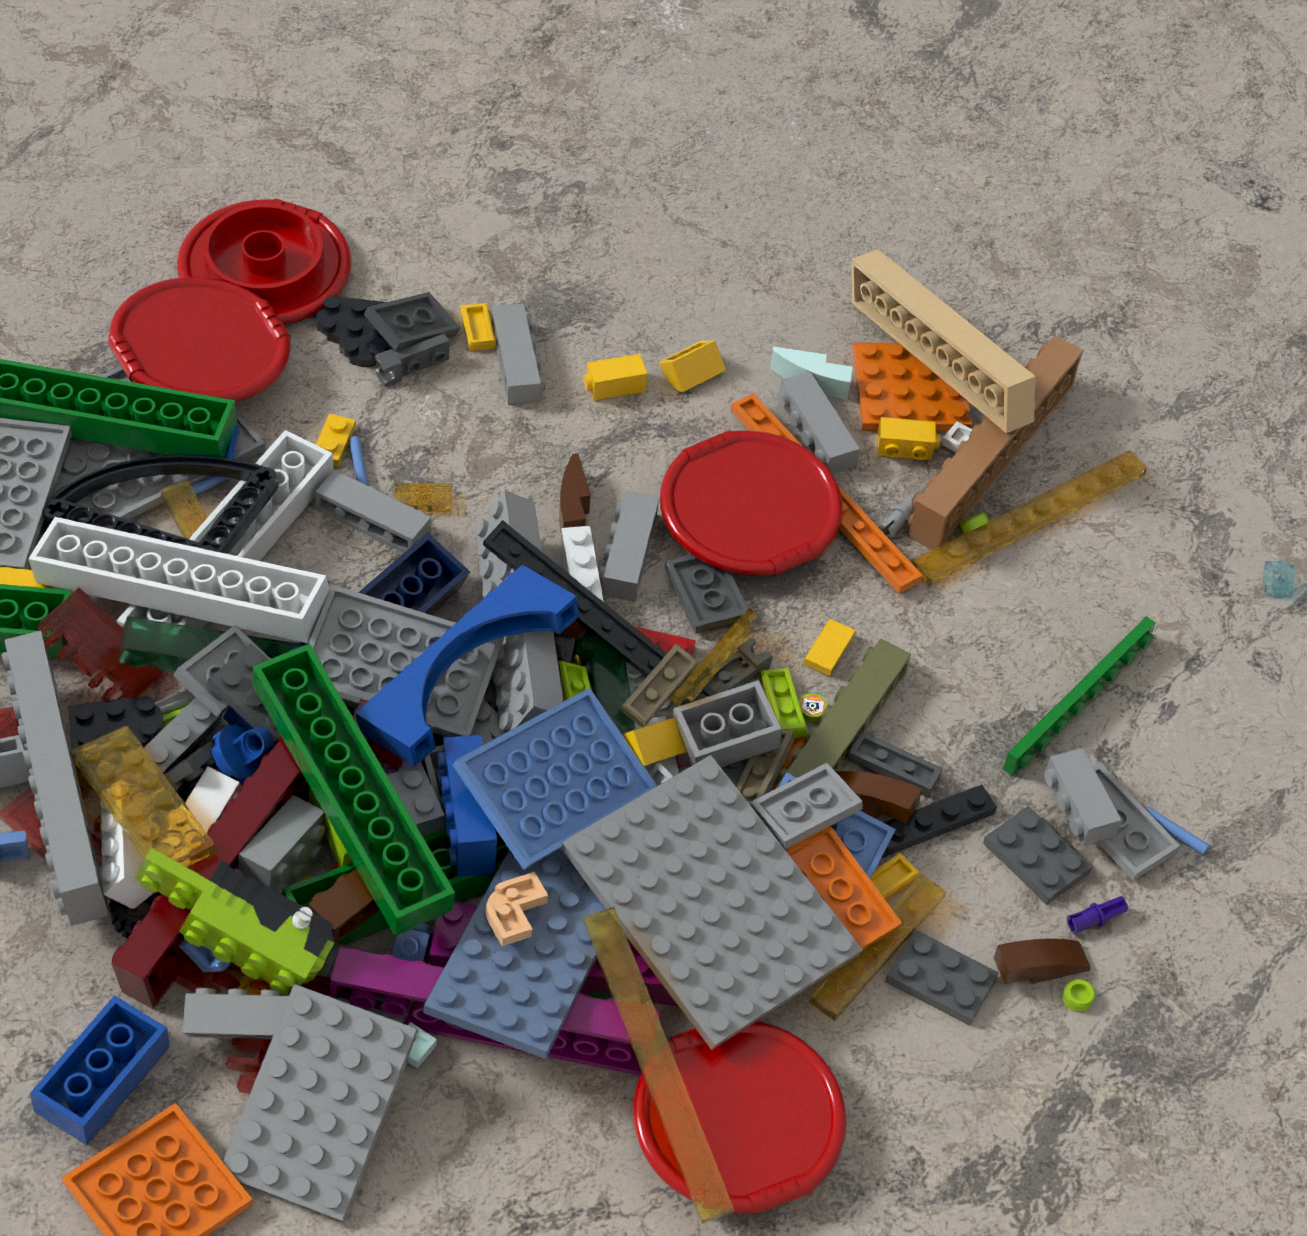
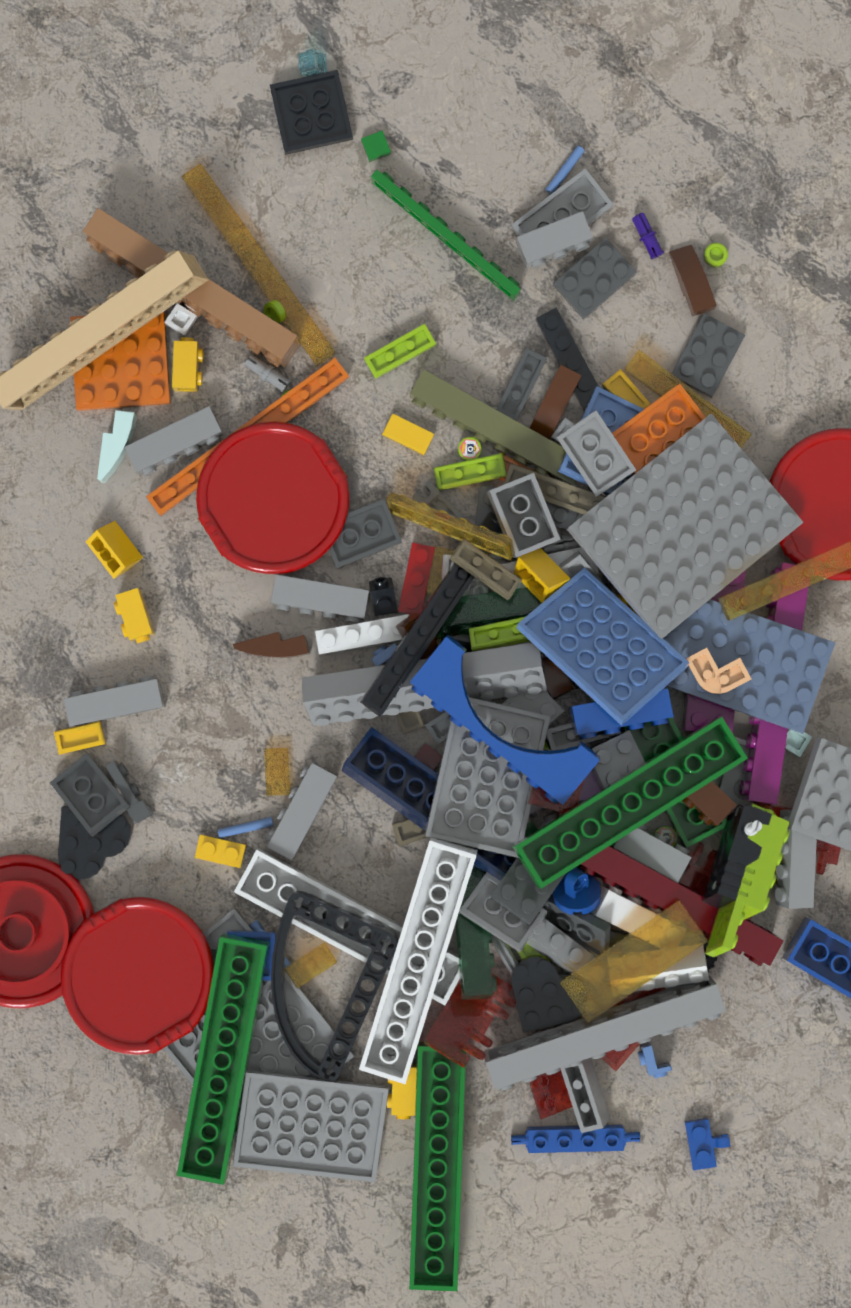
camera: 85 degrees left, 35 degrees up
(632, 604) = (383, 596): none -> black bracket
(932, 642) = (400, 351): none -> lime plate
(1185, 636) = (375, 146): none -> green tile
(1219, 574) = (311, 112): none -> black plate

